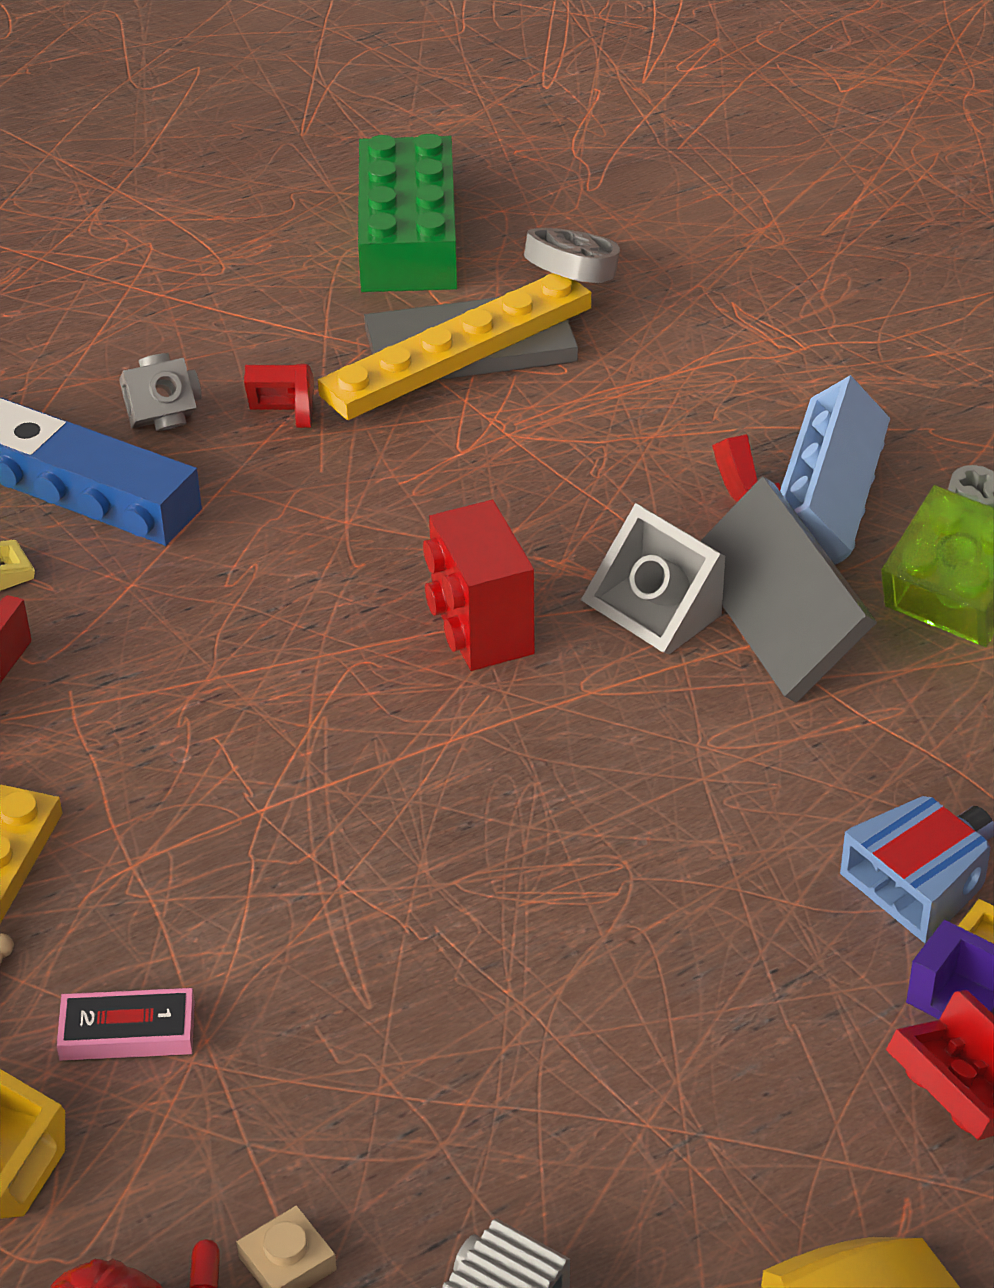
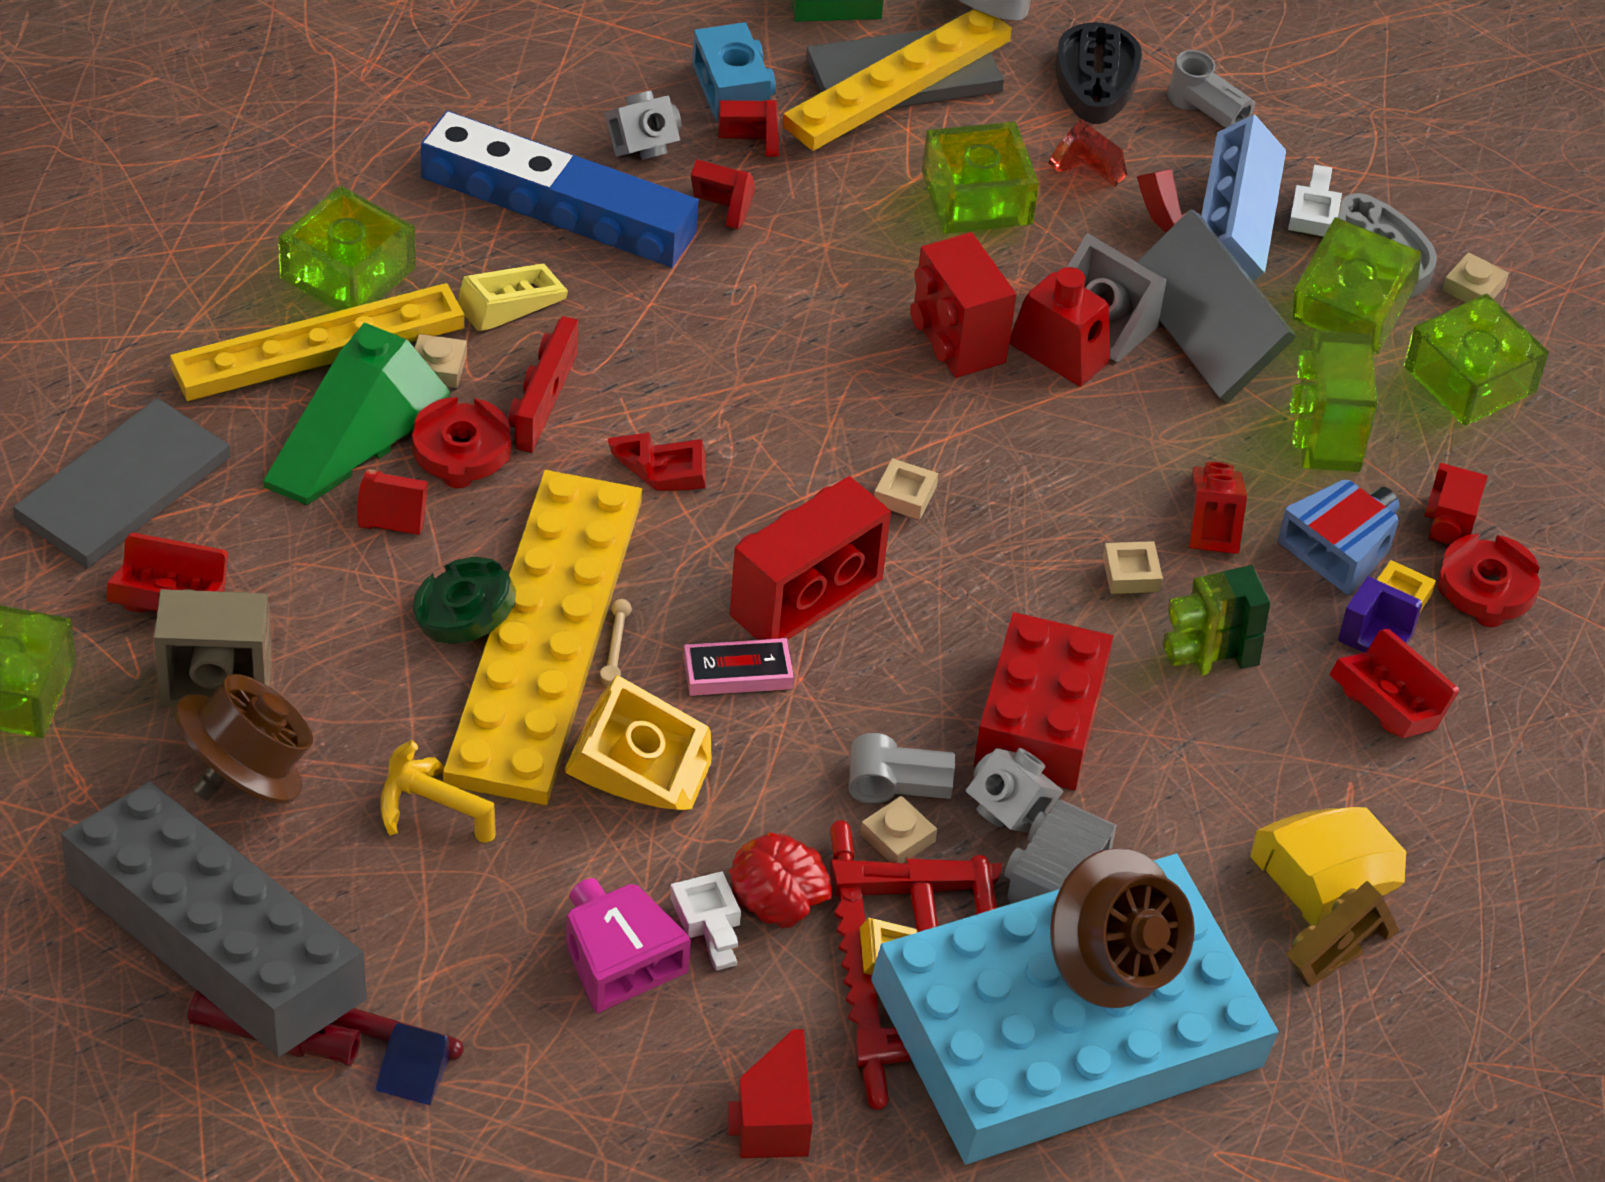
camera: 10 degrees left, 5 degrees up
(97, 771) = (662, 466): none -> red slope
(230, 891) = (809, 561): none -> red brick
(237, 457) = (724, 187): none -> red tile
(275, 328) = (731, 65): none -> dark azure brick
(283, 1168) = (884, 769): none -> light grey piece
(379, 801) = (906, 488): none -> tan plate
(439, 1201) = (1012, 789): none -> light grey brick
(502, 1080) = (1046, 695): none -> red brick
(529, 446) = (980, 177): none -> clear neon green brick
(601, 611) = (1064, 326): none -> red torso
(647, 903) = (1132, 567): none -> tan plate
(659, 414) = (1091, 148): none -> clear red tile
(701, 354) = (1077, 76): none -> black piece
(742, 975) = (1219, 620): none -> clear neon green hips
(763, 830) = (1217, 508): none -> red bracket
(797, 354) = (1198, 87): none -> light grey piece
(918, 475) = (1315, 205): none -> white plate
(919, 700) = (1334, 401): none -> clear neon green brick

